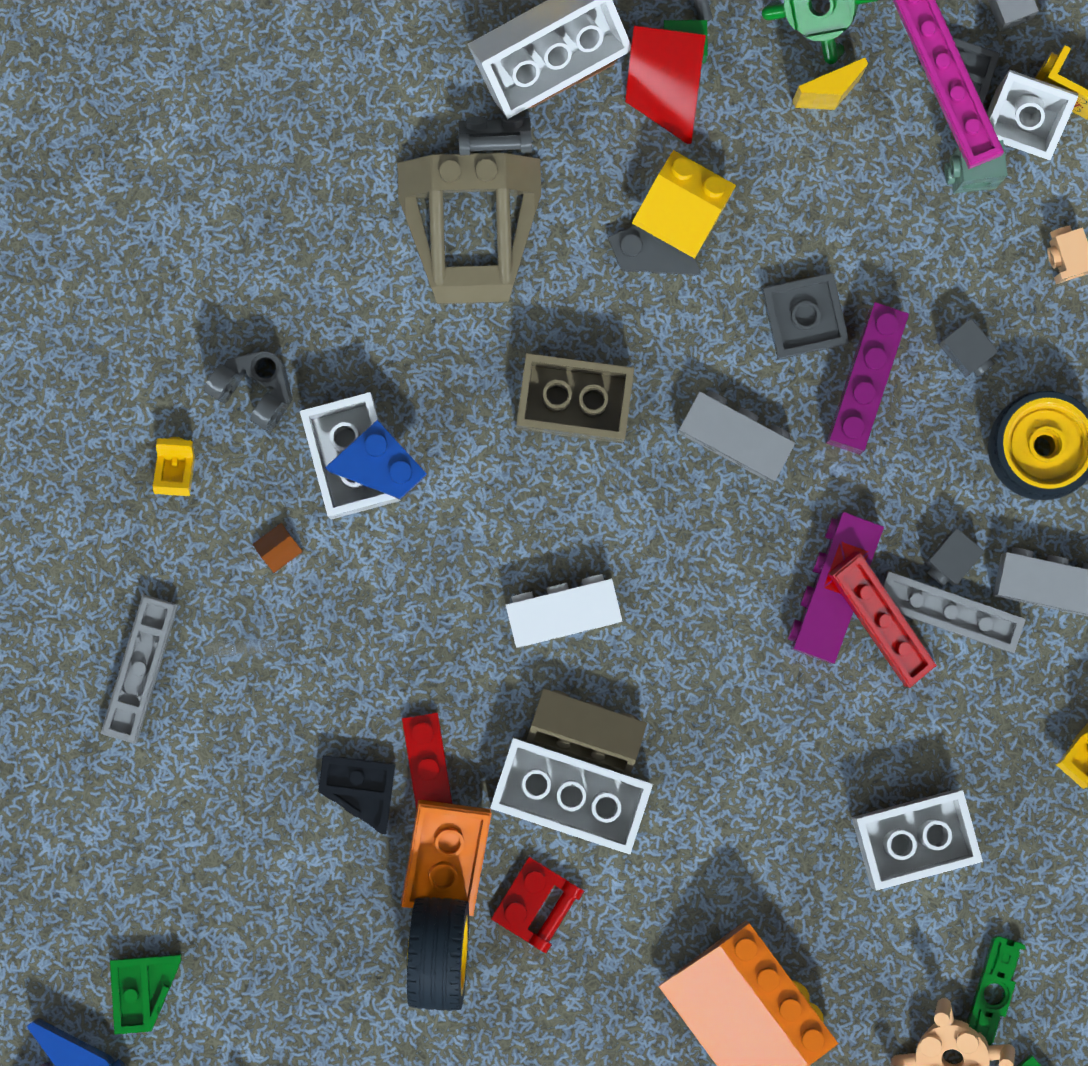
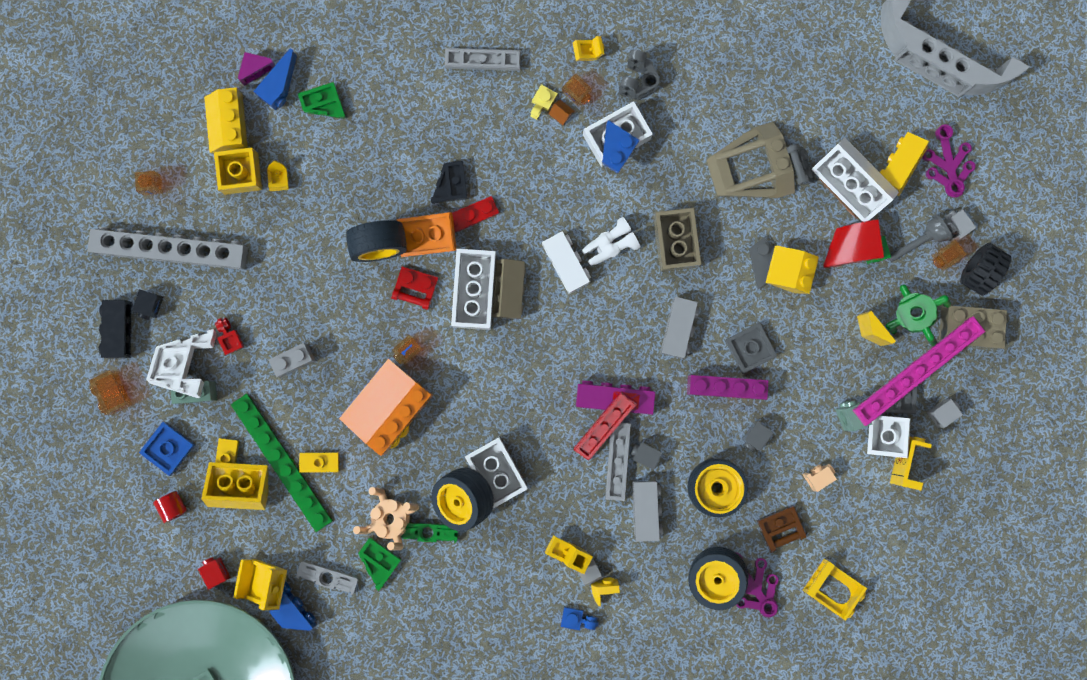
camera: 75 degrees right, 0 degrees up
(246, 575) = (543, 100): none -> light yellow plate
(247, 507) = (577, 90): none -> clear orange brick
(552, 531) = (607, 248): none -> white piece
(651, 948) = (407, 350): none -> clear orange brick
(952, 913) = (462, 499): none -> black wheel

